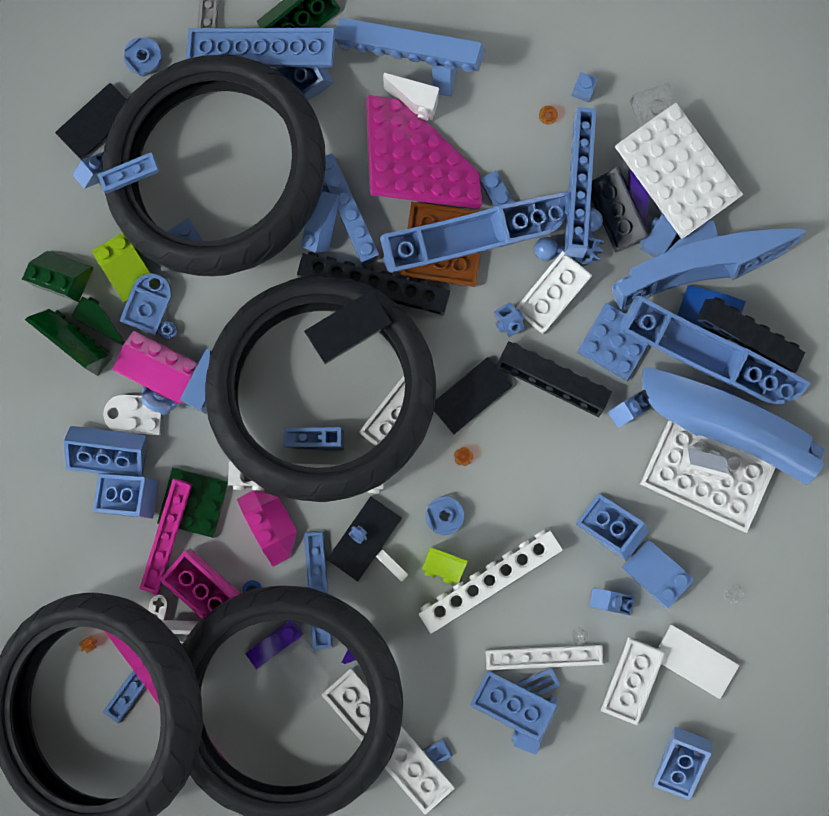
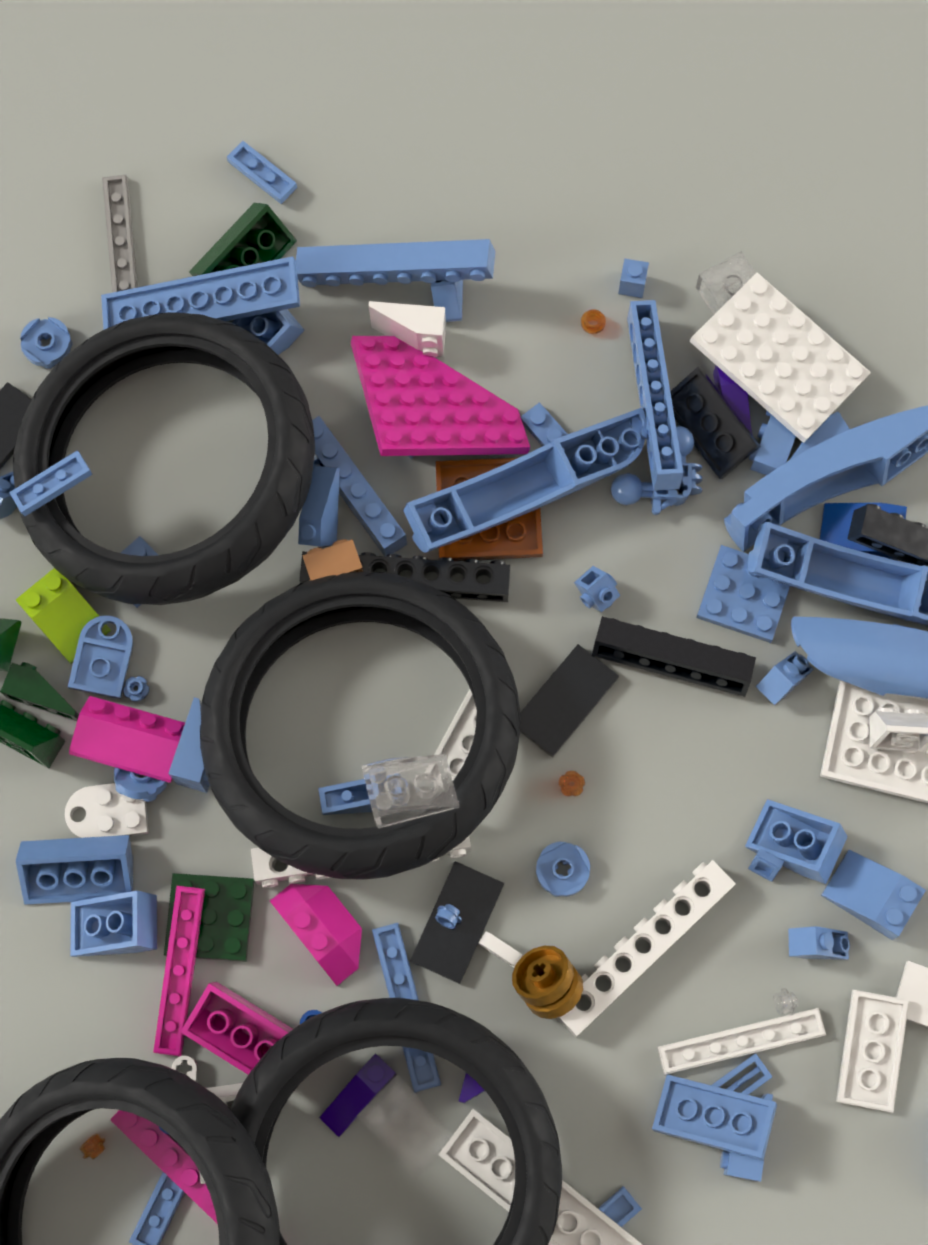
camera: 10 degrees left, 10 degrees down
(322, 266) = (333, 560): none -> medium nougat brick
(345, 446) = (409, 788): none -> clear slope
(347, 327) = (382, 631): black tile -> none
(417, 593) = (547, 982): none -> pearl gold wheel
(444, 565) = (577, 933): lime slope -> none
(553, 292) = (649, 542): white tile -> none
(587, 540) = (766, 865): none -> medium blue tile

